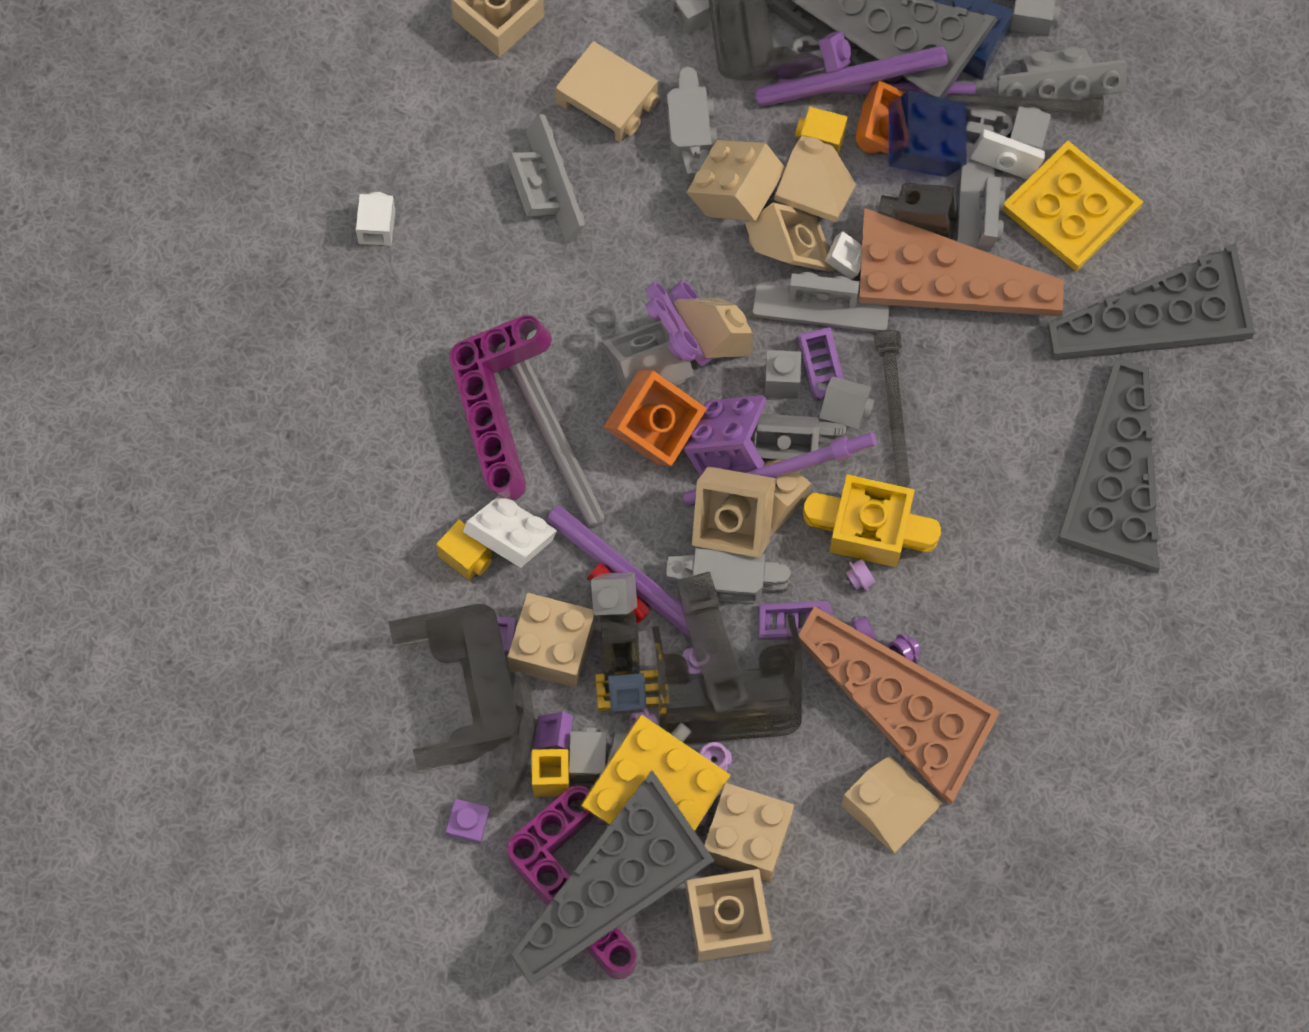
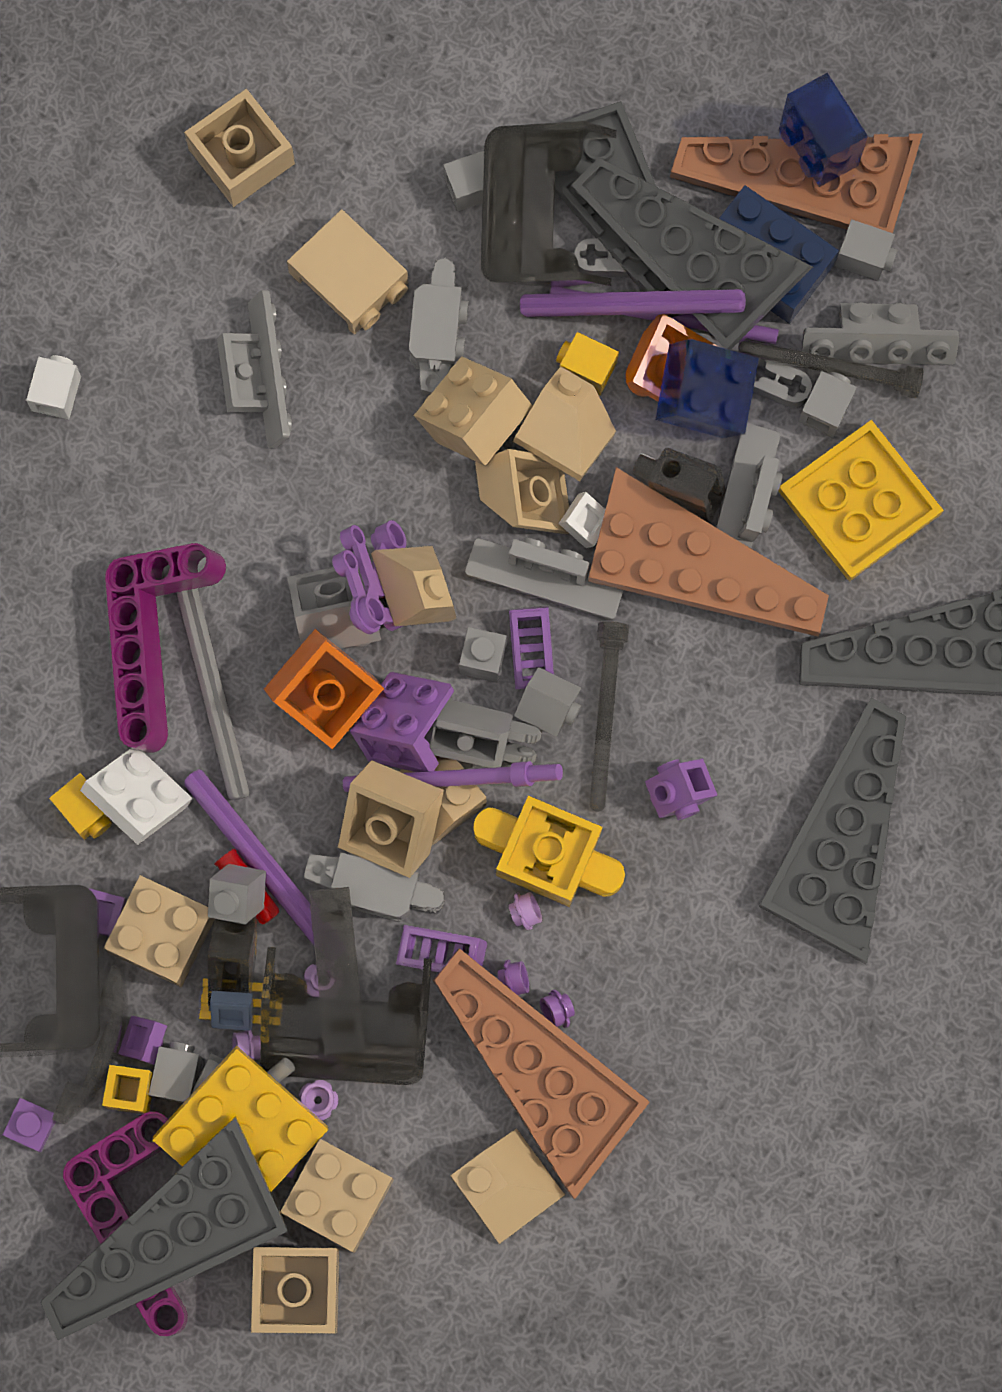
camera: 10 degrees right, 10 degrees up
(835, 51) = (618, 269): medium lavender plate -> none
(972, 453) = (680, 788): none -> medium lavender brick
(1007, 154) = (796, 427): white plate -> none

